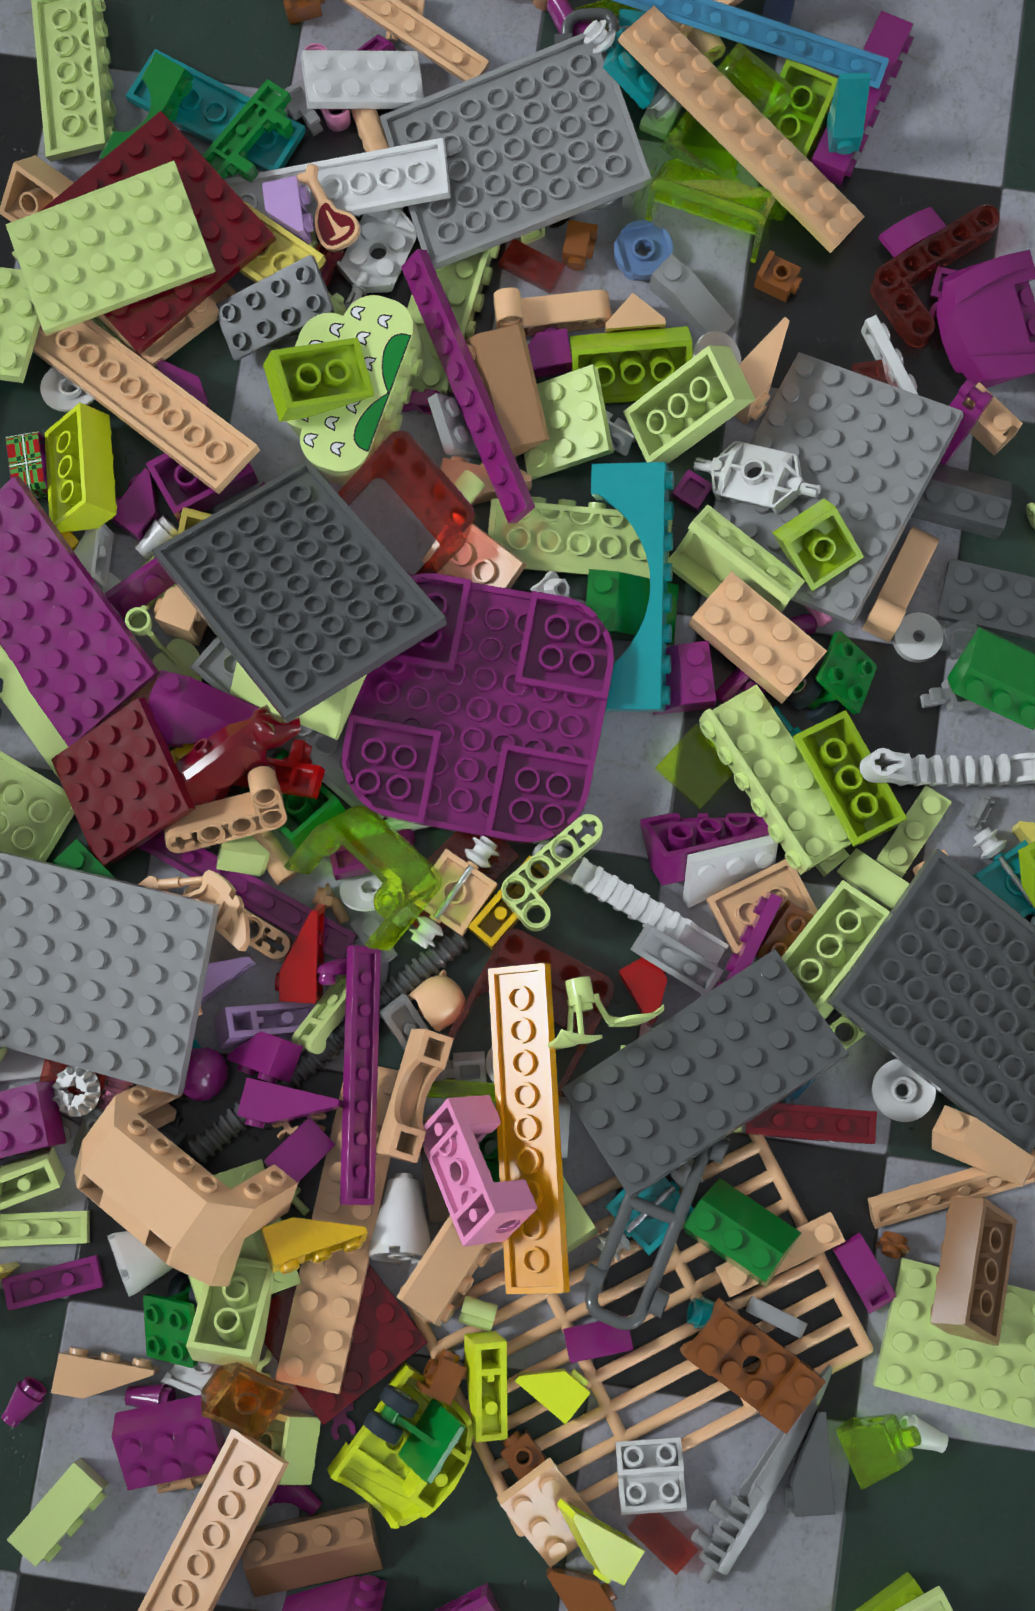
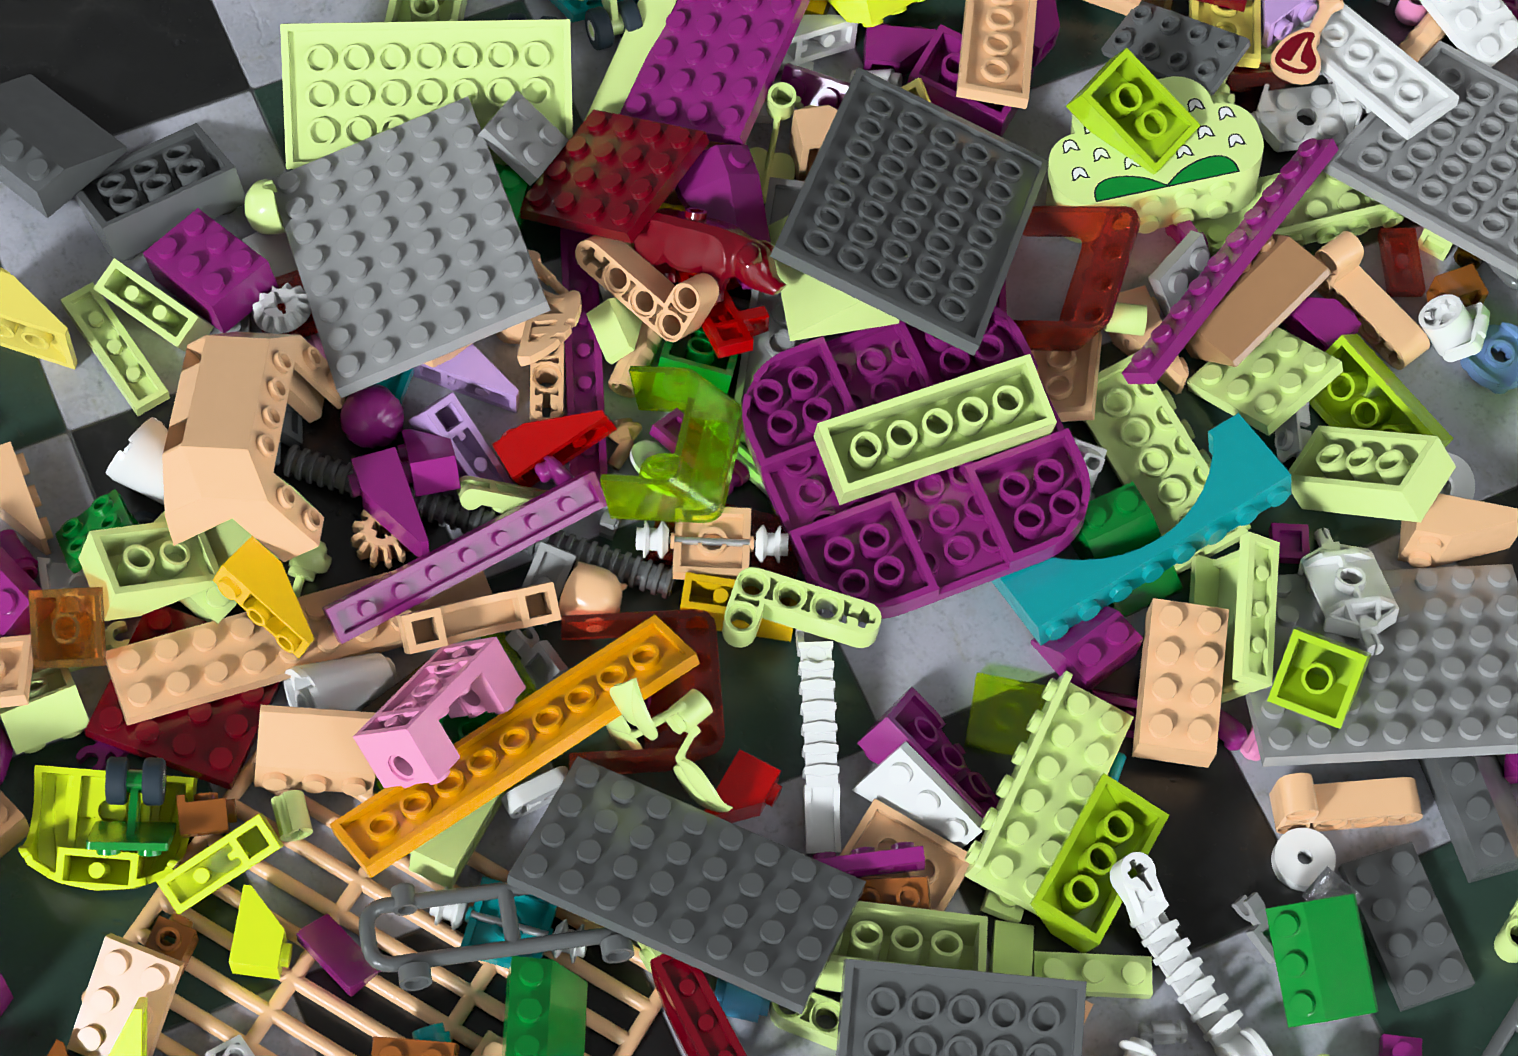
camera: 45 degrees right, 15 degrees down
(48, 829) = (523, 138): none -> light grey plate
(53, 1282) = (77, 404): magenta plate -> none
(301, 1150) = (350, 547): magenta panel -> none
(479, 686) = (934, 429): none -> yellowish green brick
(608, 268) = (1452, 328): none -> white piece
(634, 315) = (1423, 380): light nougat slope -> none
(676, 959) = (789, 794): light grey plate -> none
(689, 297) = (1485, 425): light grey slope -> none
(841, 678) = (1206, 798): green plate -> none

